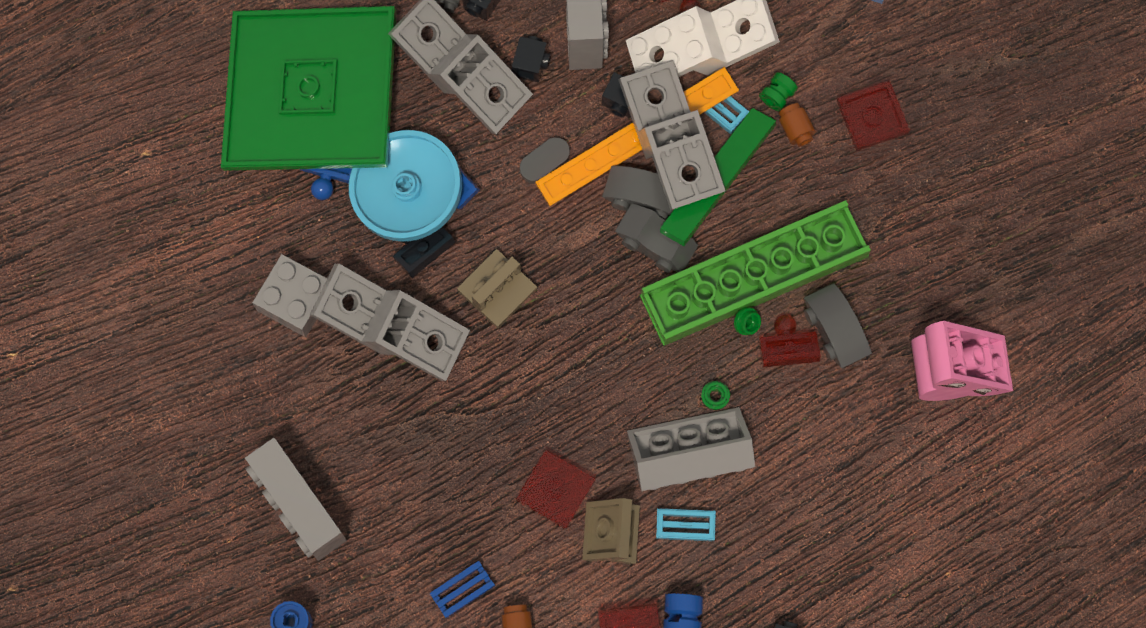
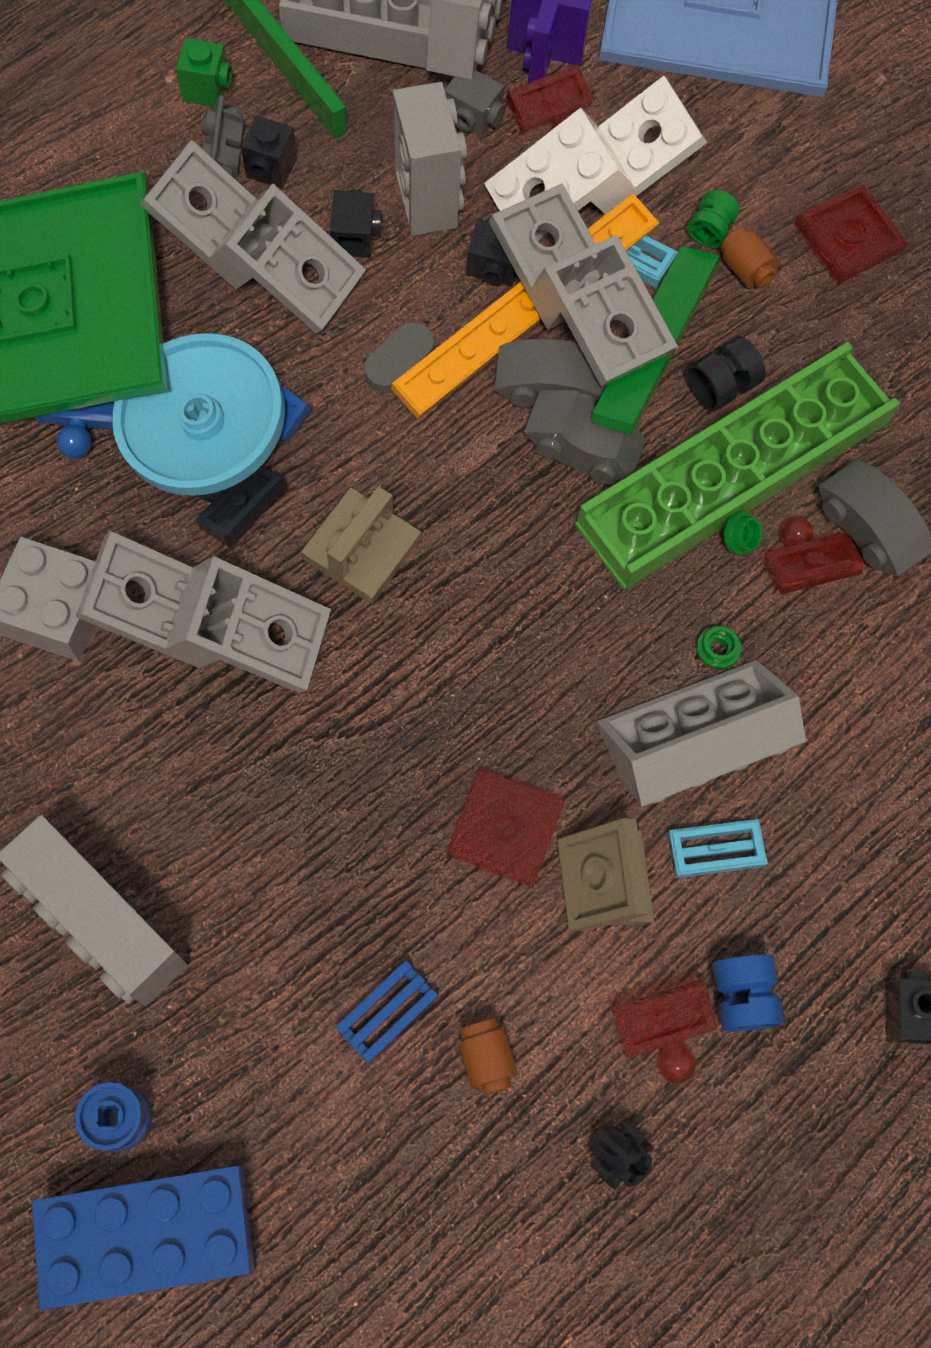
camera: 15 degrees left, 5 degrees down
(762, 207) = (725, 373): none -> black wheel

